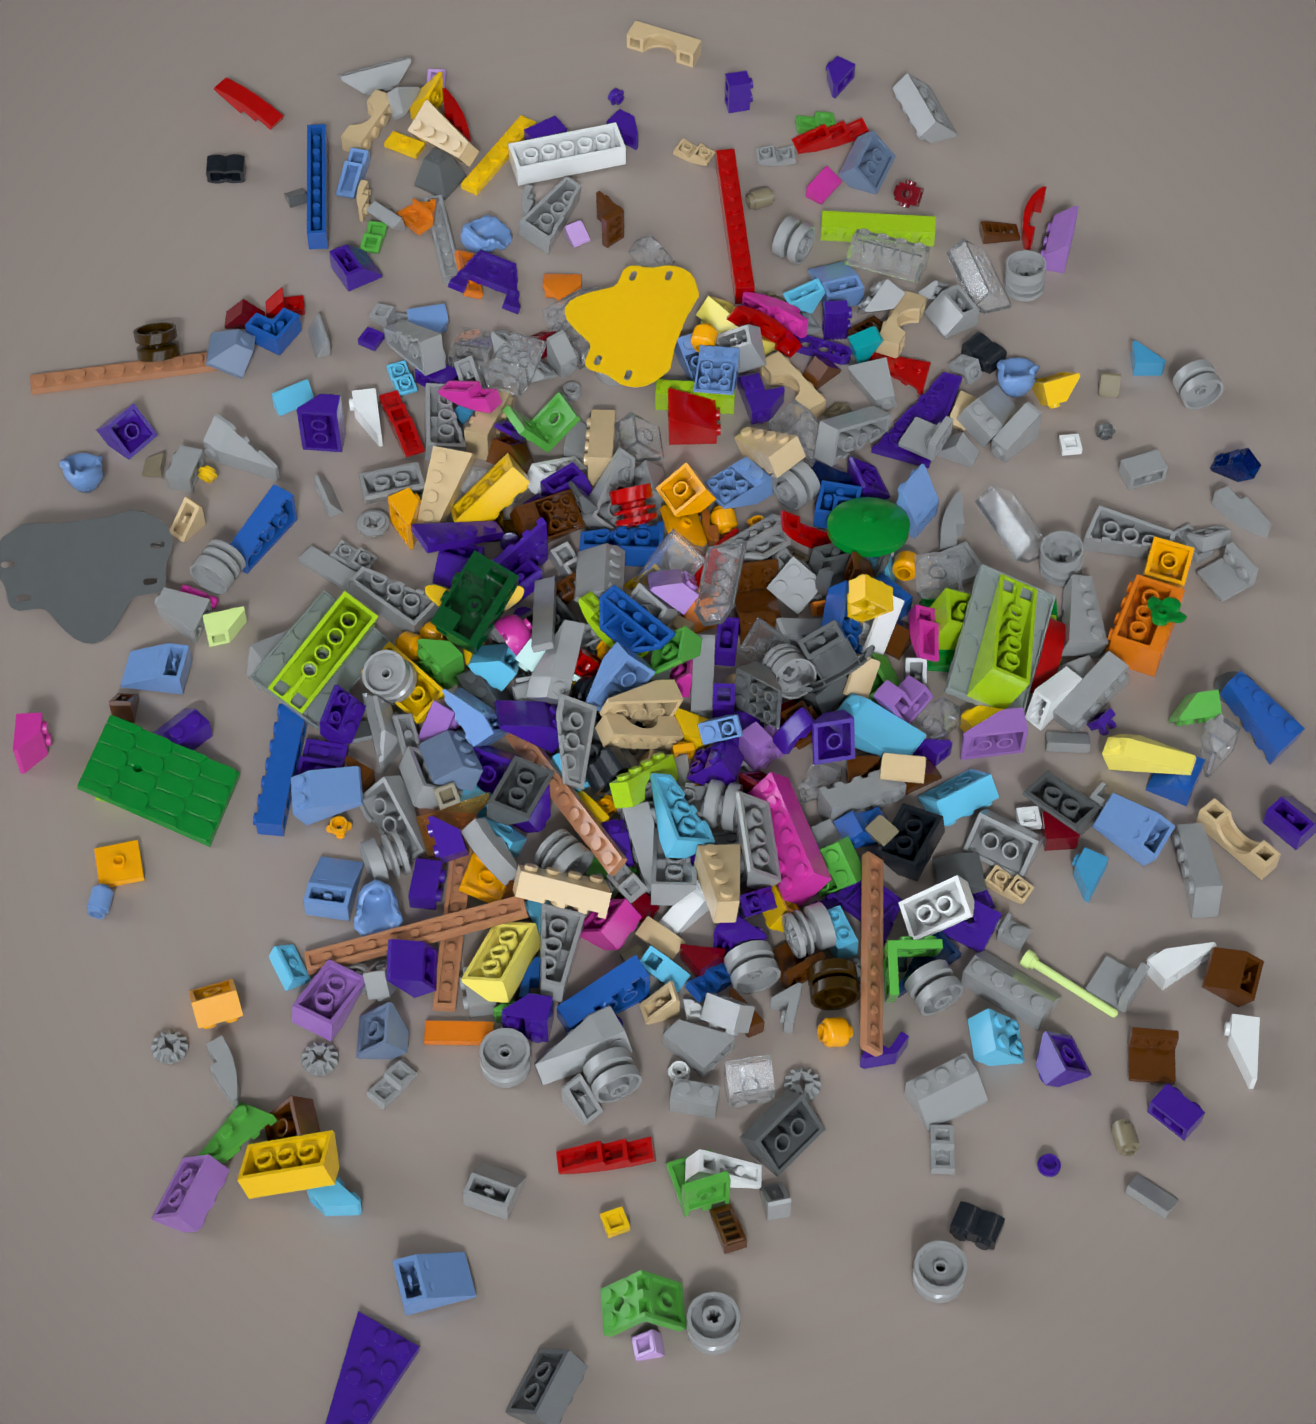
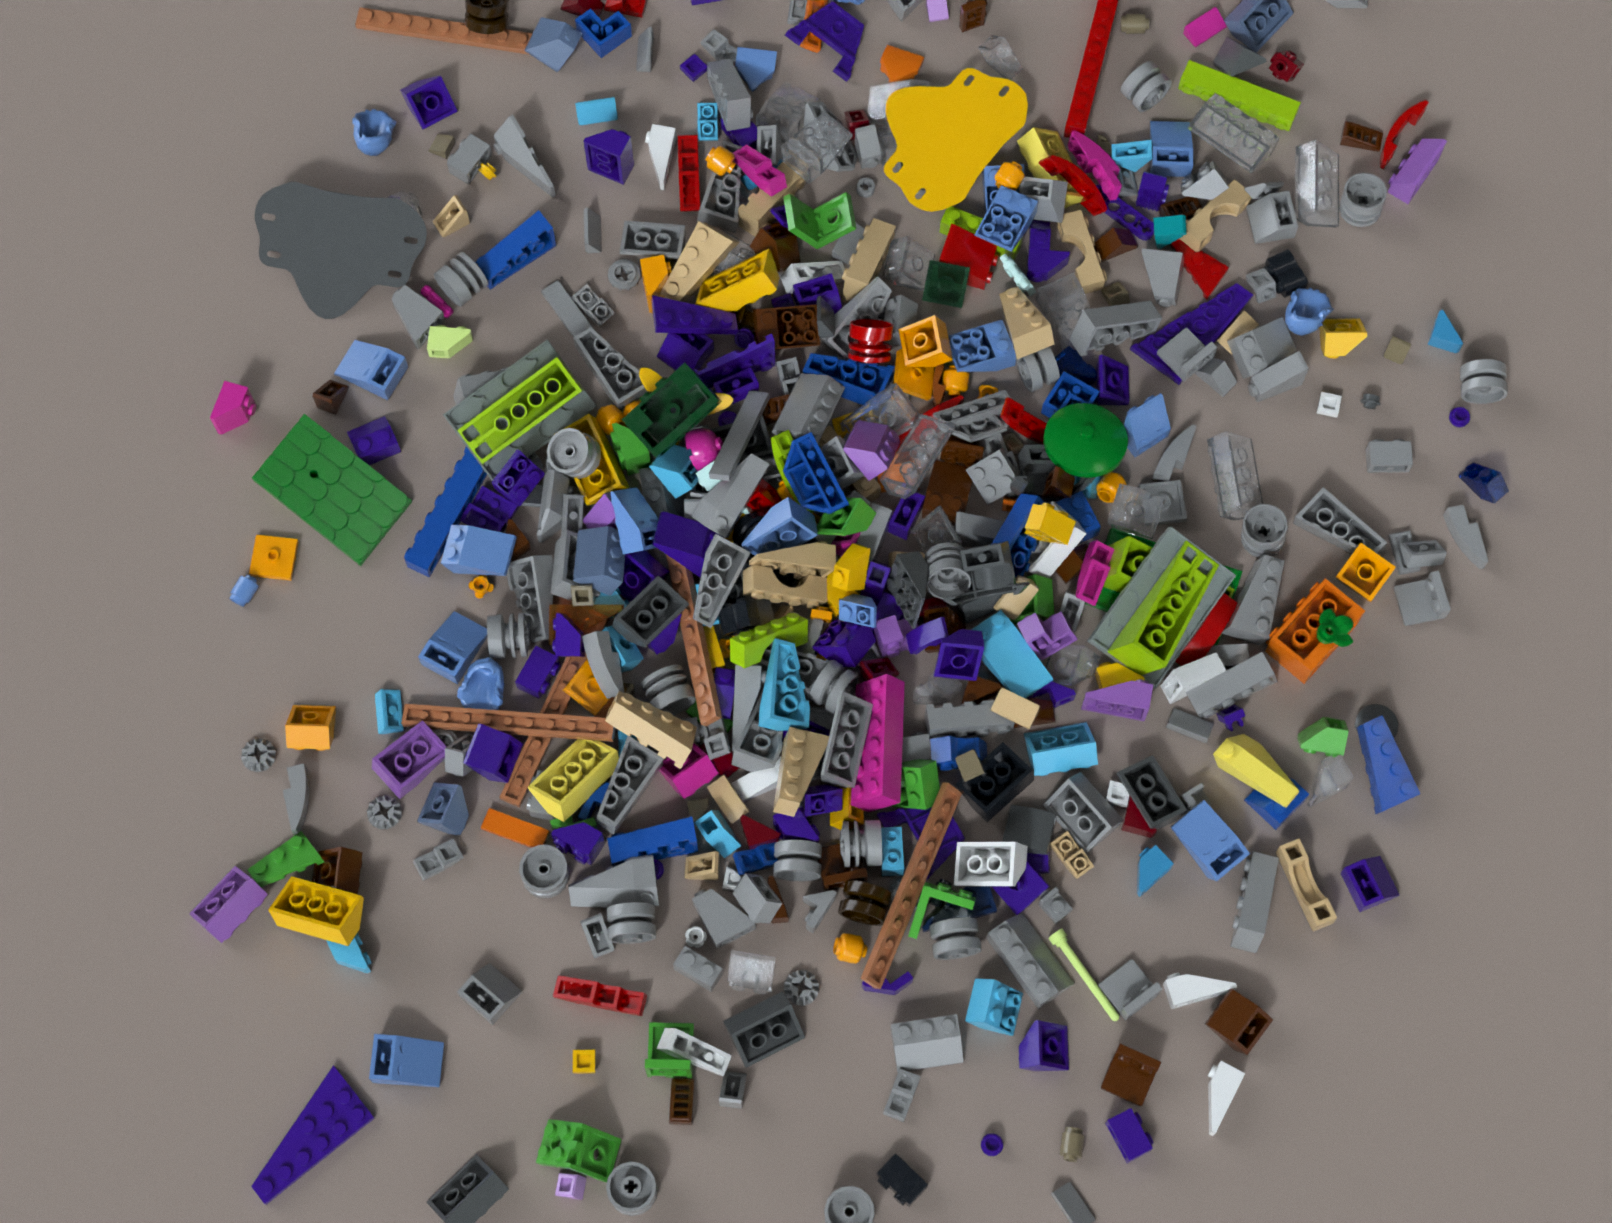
camera: 20 degrees right, 15 degrees up
(431, 396) = (720, 160): none -> light orange head
(681, 443) = (945, 284): none -> clear green slope
(698, 694) = (852, 568): none -> yellow slope
(742, 418) = (1019, 277): none -> light aqua plate
(863, 196) = (1236, 58): none -> dark grey slope
(1189, 421) = (1459, 417): none -> dark purple plate

